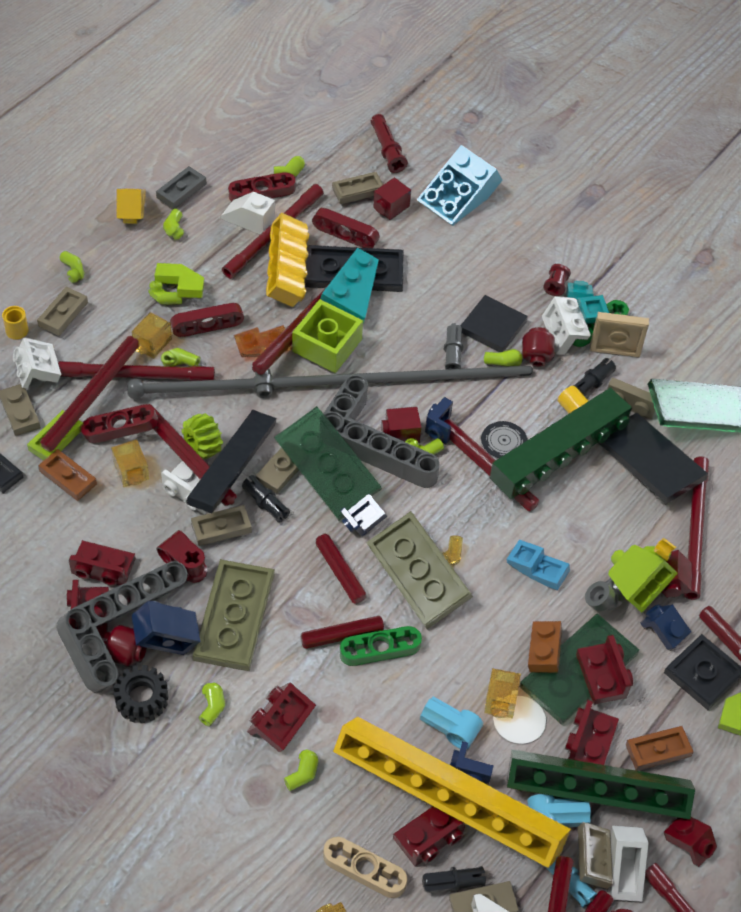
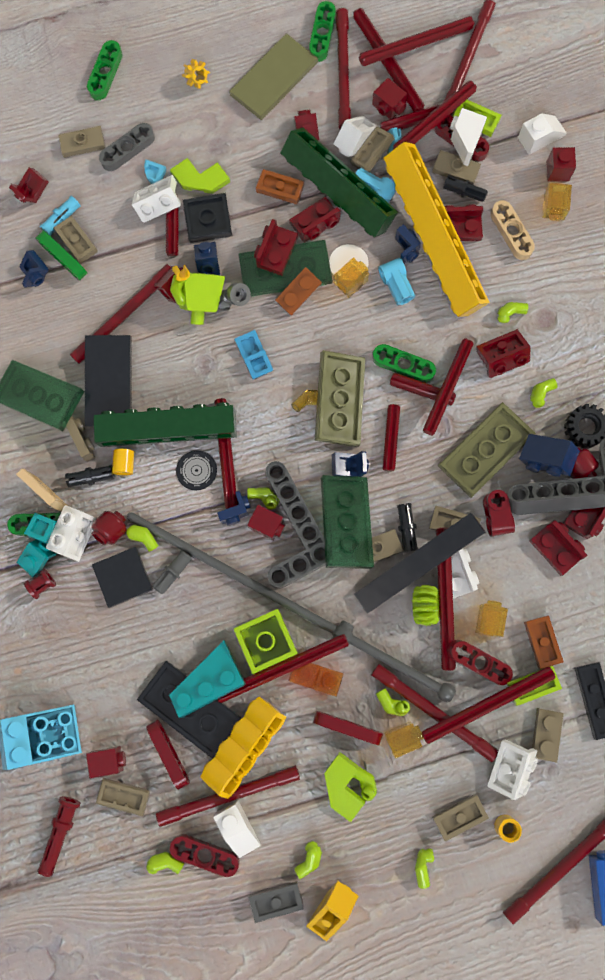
camera: 135 degrees left, 25 degrees up
(317, 641) = (448, 387): none -> dark red axle

